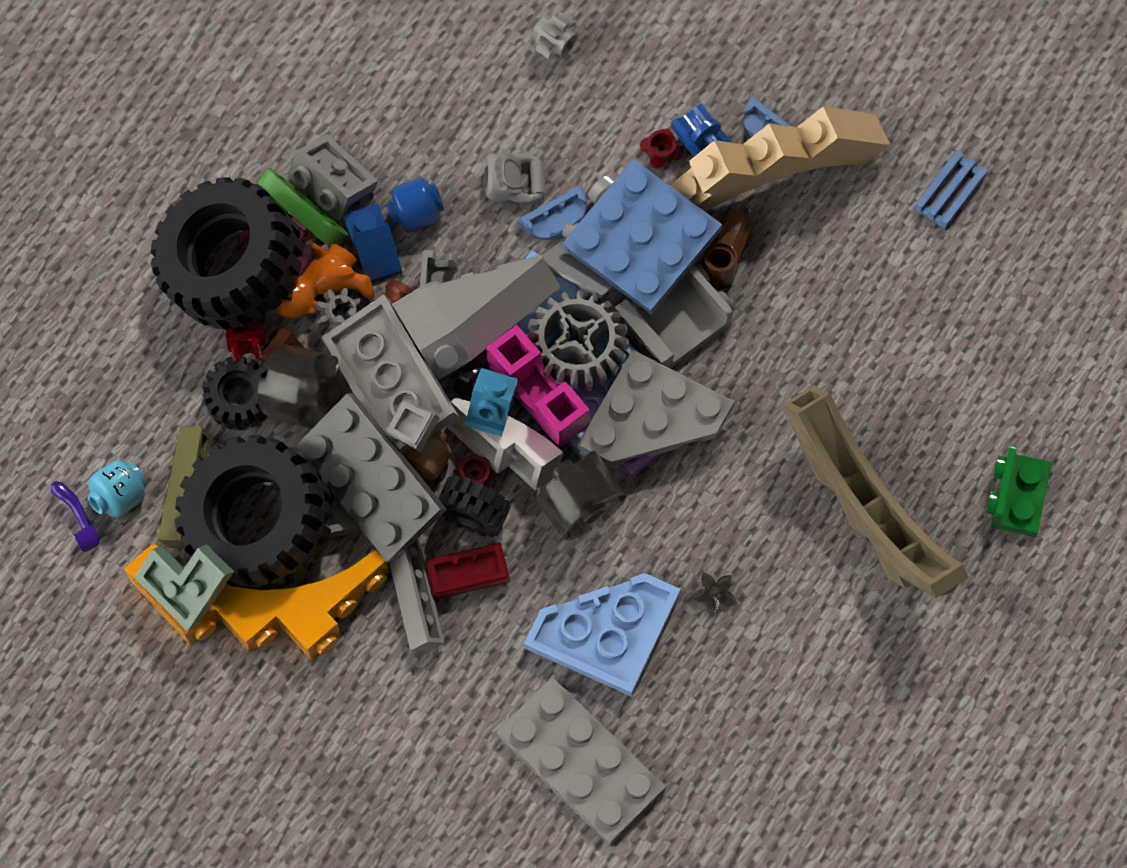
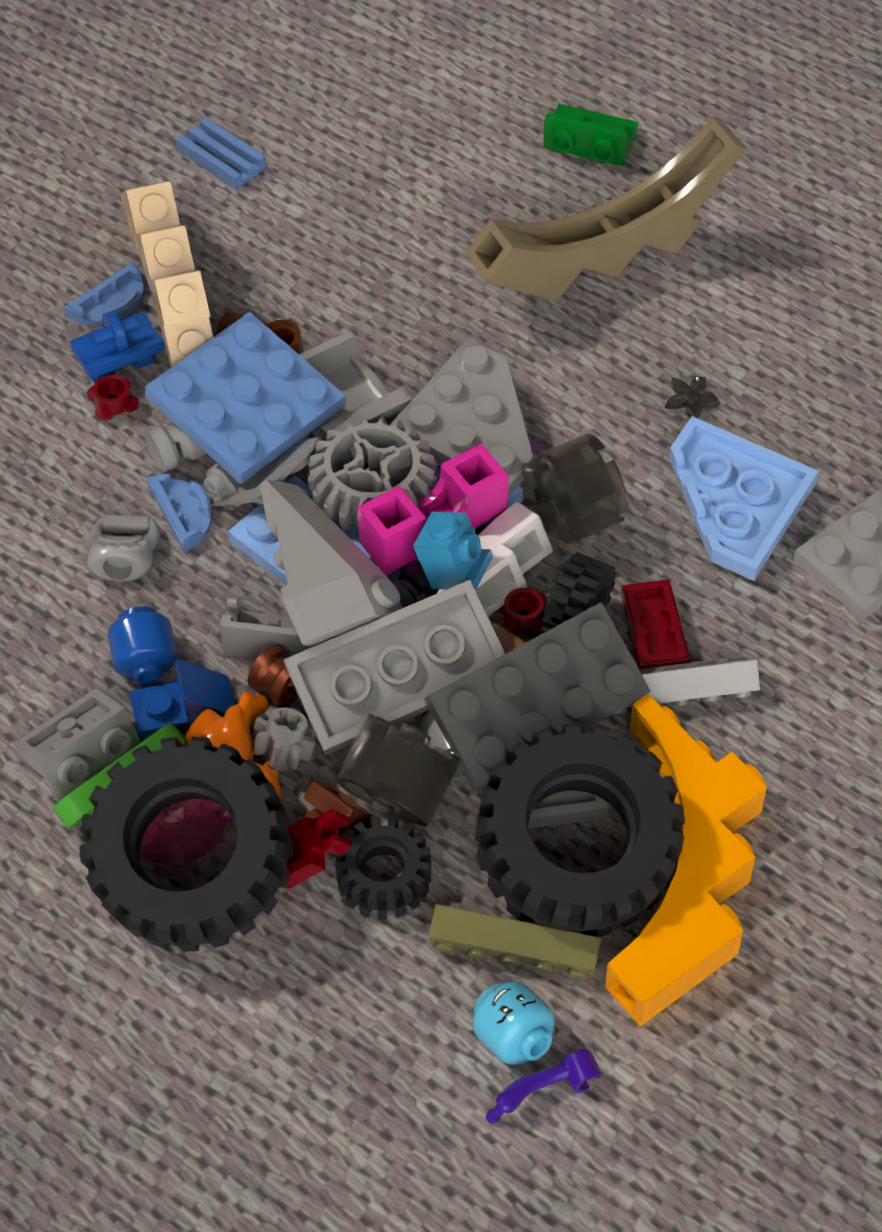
camera: 85 degrees left, 15 degrees down
(188, 590) = (697, 905): sand green plate -> none
(412, 425) = (480, 628): light grey tile -> none

